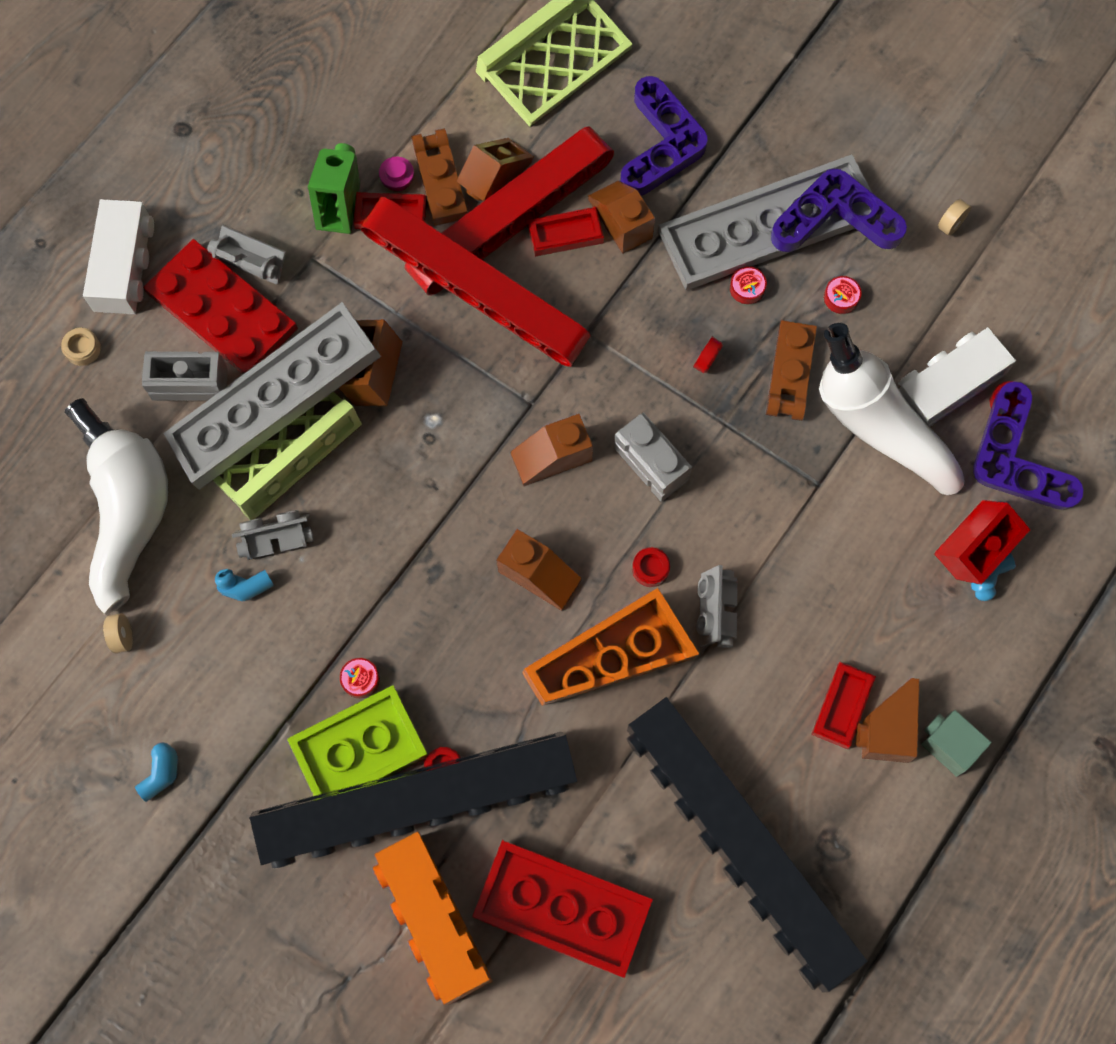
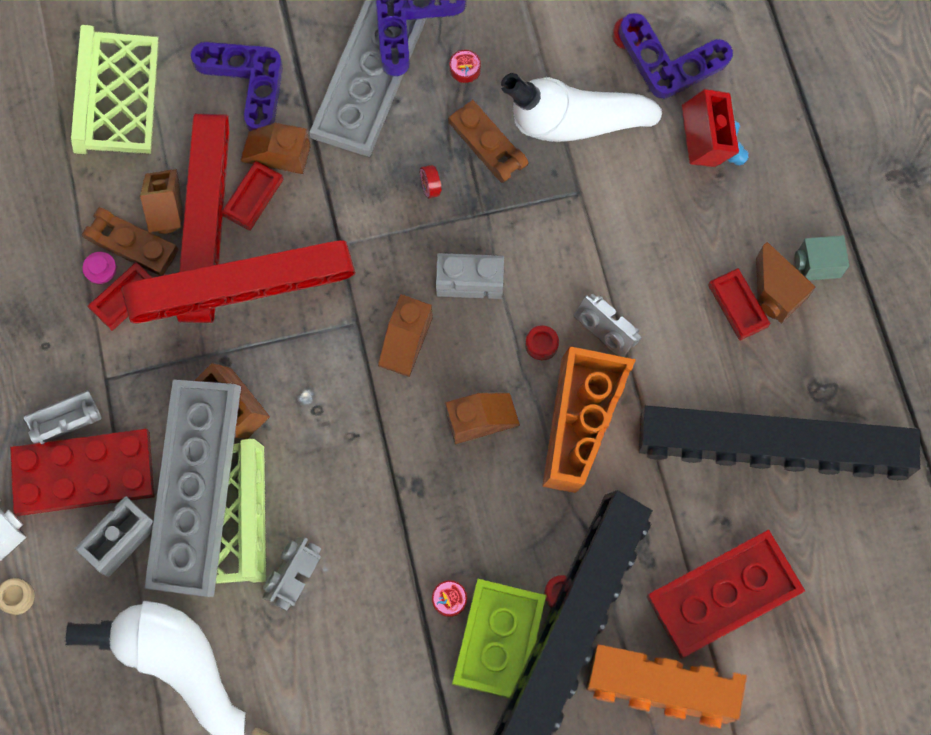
camera: 50 degrees left, 0 degrees up
(241, 588) = (310, 628): dark azure arm -> none
(338, 174) = (67, 310): bright green torso -> none
(748, 285) = (403, 116): tile -> none
(956, 376) = (587, 46): white brick -> none

